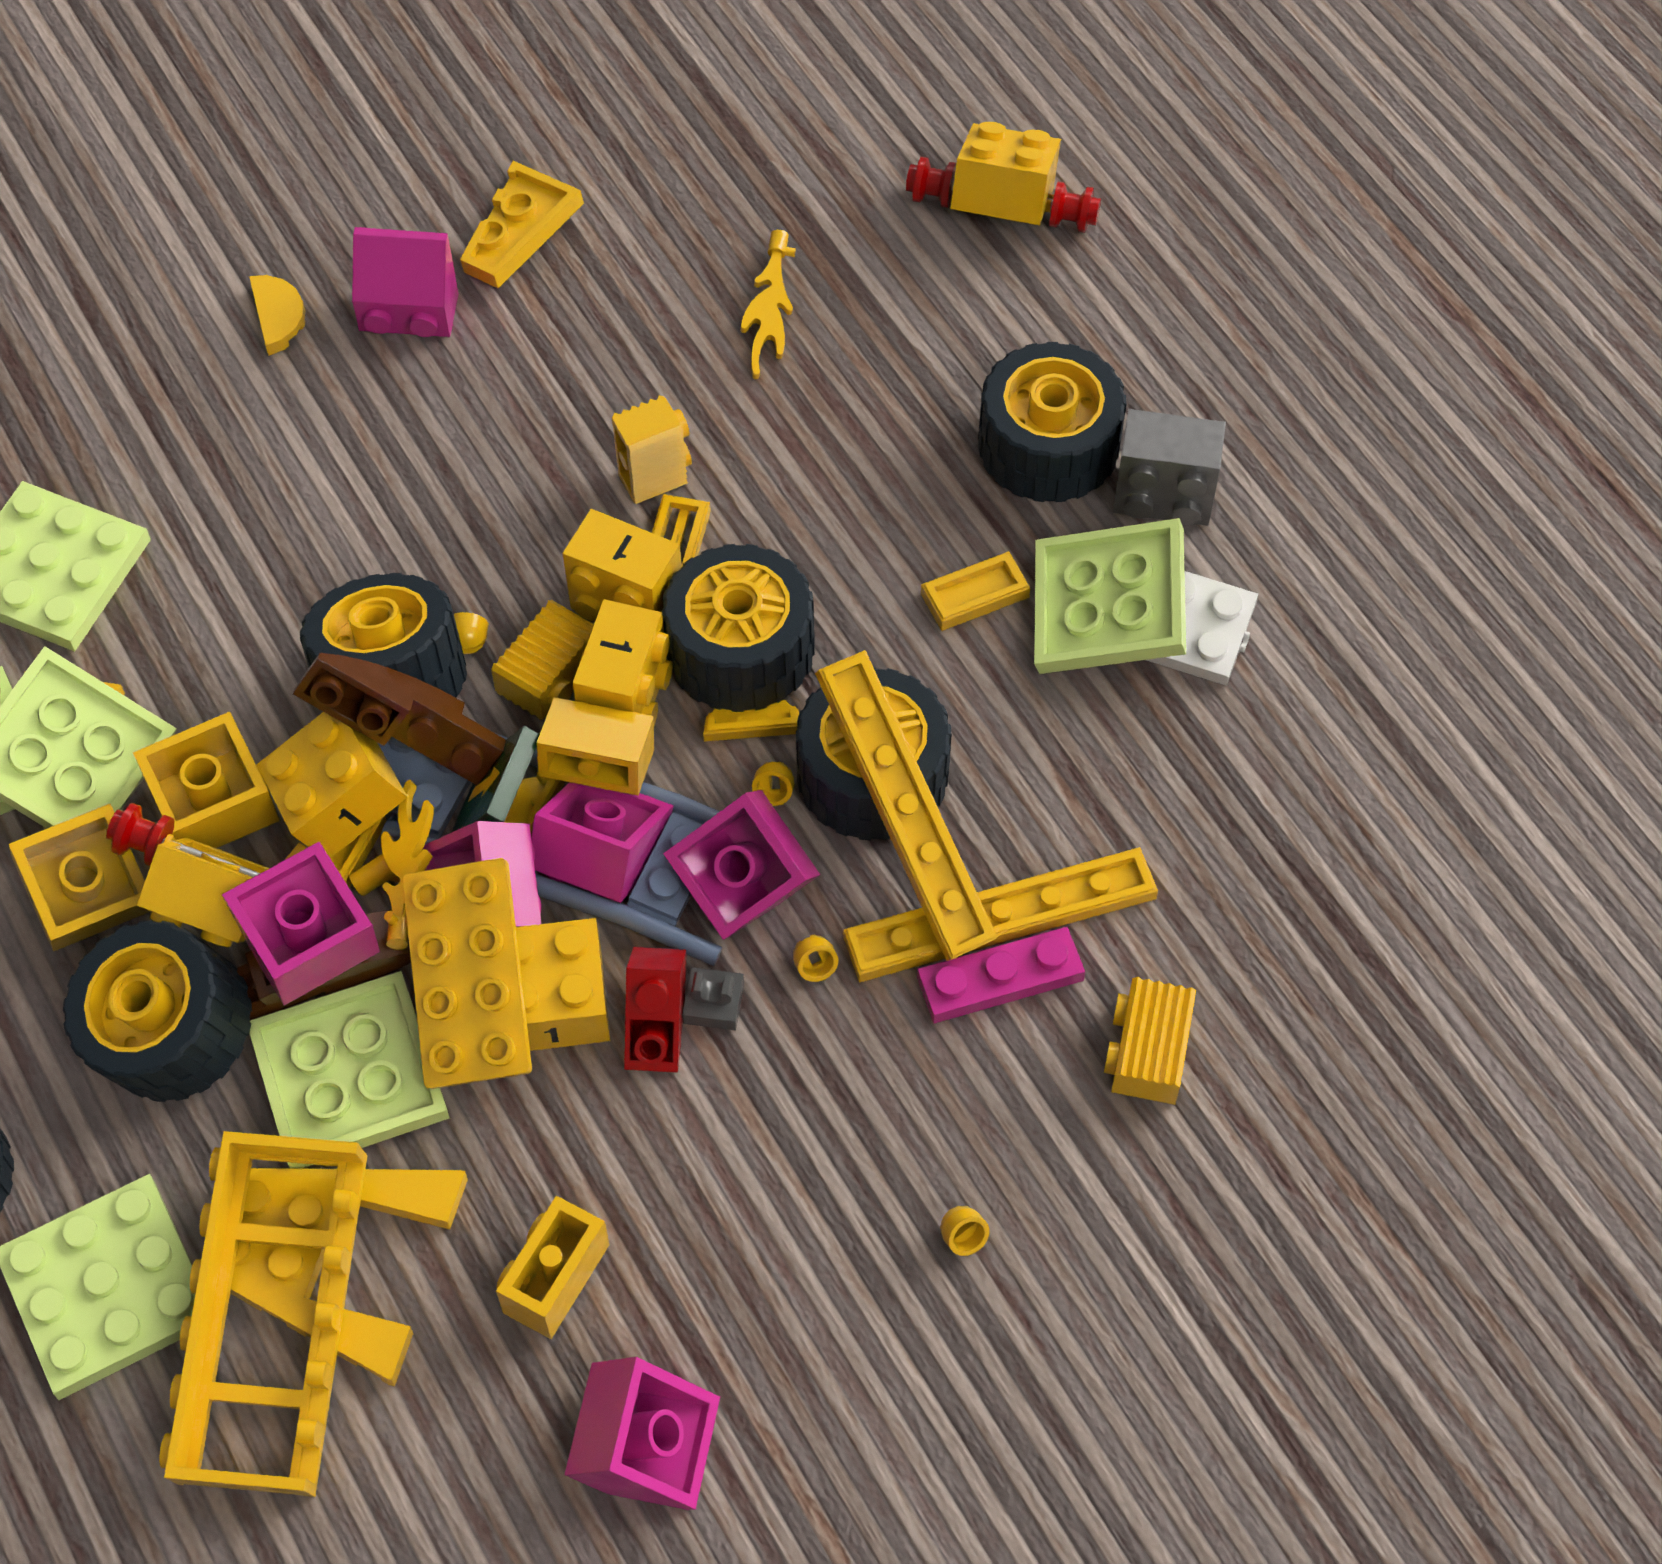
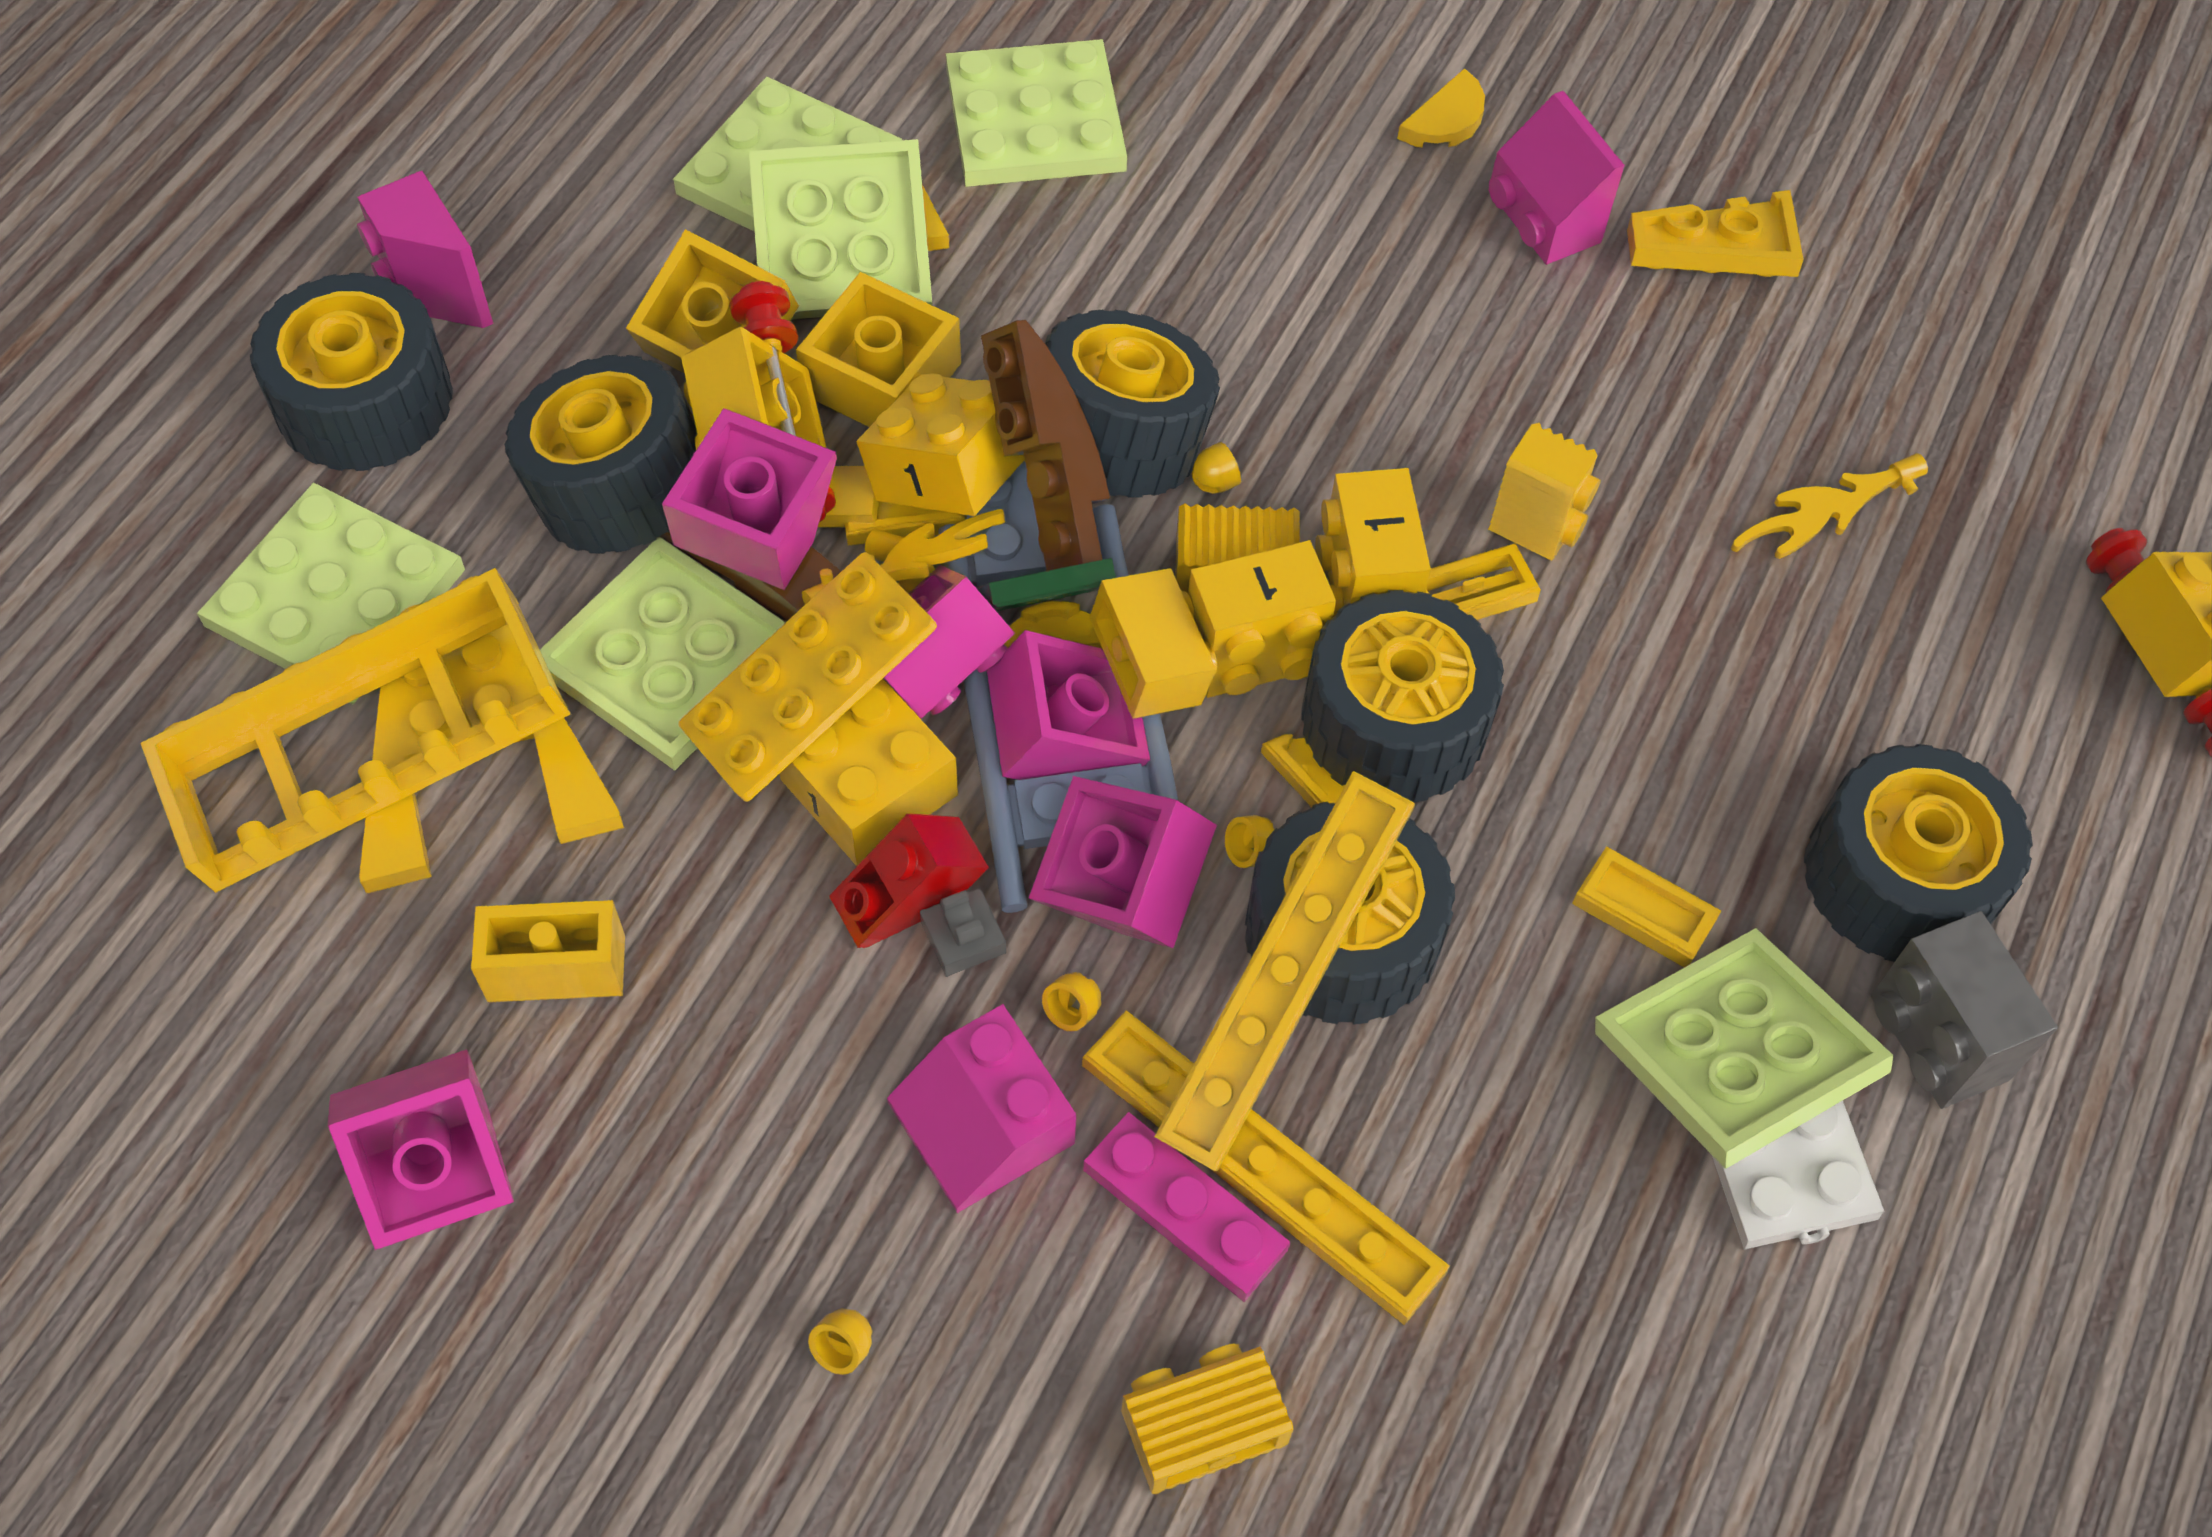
camera: 55 degrees right, 0 degrees up
(859, 1054) = (983, 1109): none -> dark pink slope

